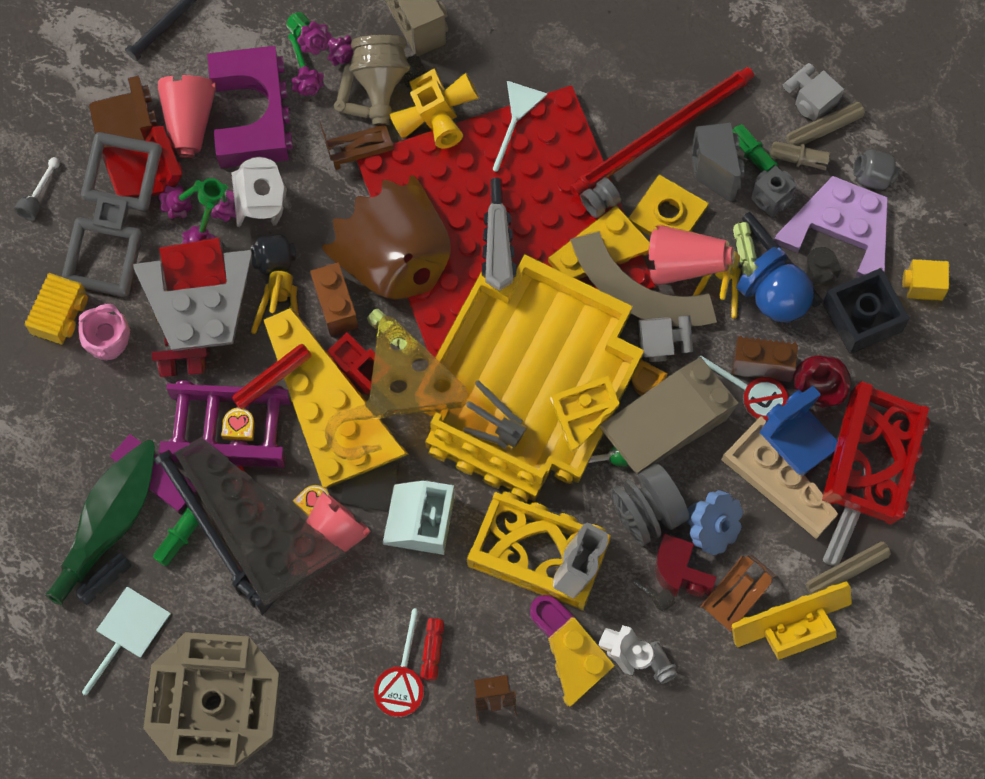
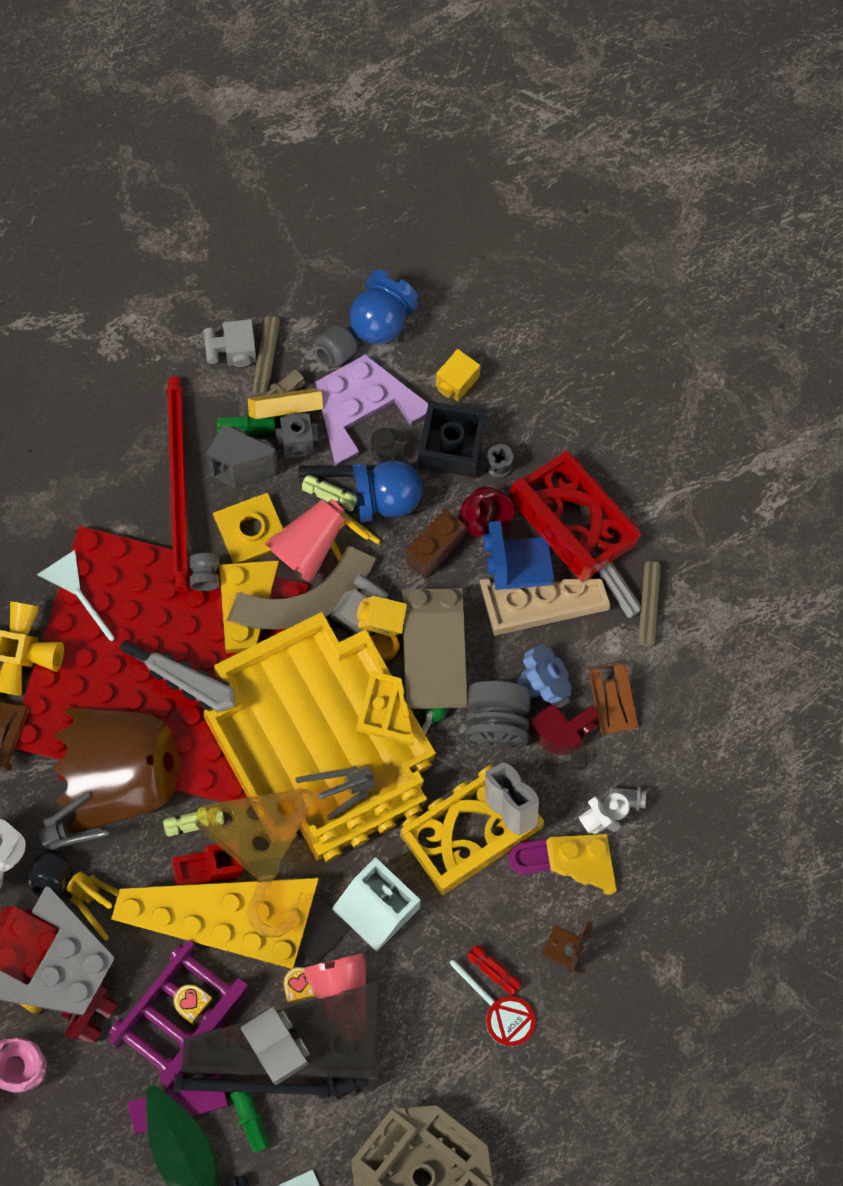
camera: 60 degrees left, 0 degrees up
(236, 506) = (275, 1045): none -> light grey brick
(271, 376) = (171, 944): red axle -> none
(307, 238) = (57, 835): none -> dark grey plant
(334, 299) = (131, 849): dark orange brick -> none
(663, 353) = (381, 615): none -> yellow brick
(759, 395) = (462, 567): piece -> none
(793, 163) = (285, 403): none -> yellow piece
(796, 623) = (669, 672): yellow bracket -> none
(873, 370) = (505, 466): none -> dark grey bush
(930, 180) = (381, 310): none -> blue tile

